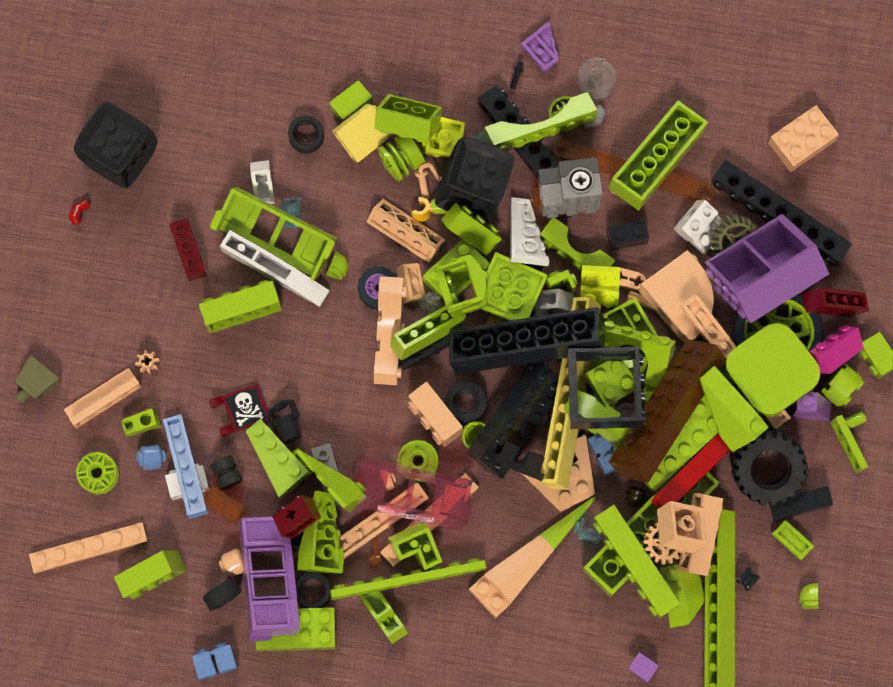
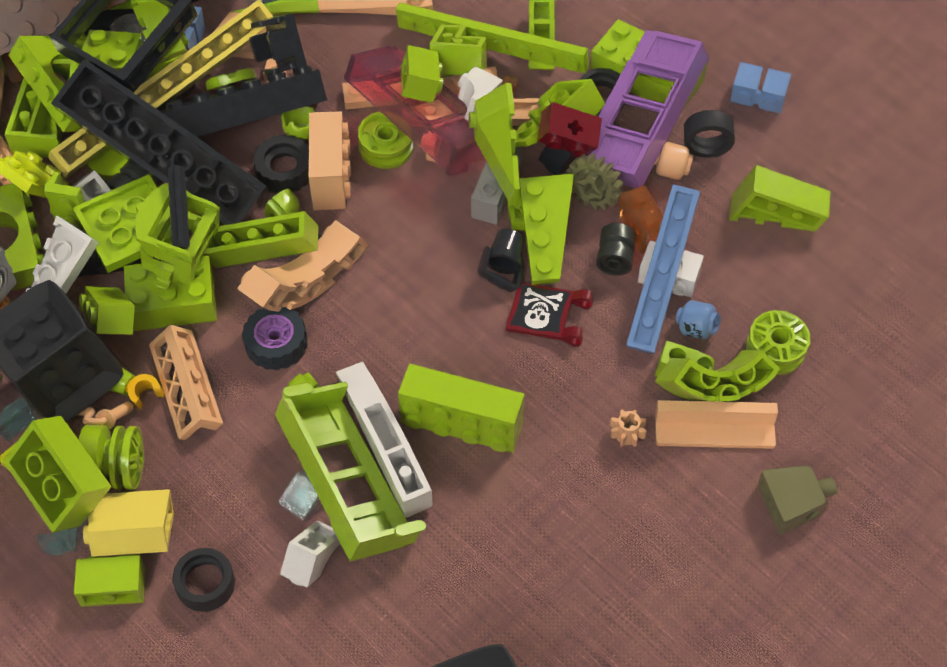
camera: 145 degrees left, 20 degrees down
(88, 548) = (840, 278): light nougat plate -> none
(111, 415) = (740, 377): none -> lime brick
(187, 249) = (476, 530): dark red brick -> none
(265, 505) = (595, 181): none -> olive gear
(379, 523) = (475, 85): none -> white arch
(413, 280) = (228, 327): light nougat slope -> none
(418, 502) = (421, 74): none -> lime brick
(430, 303) = (228, 278): clear gear -> none
(440, 372) = (282, 204): none -> lime piece
(463, 288) = (178, 207): none -> black axle
(538, 434) = (230, 79): none -> lime tile

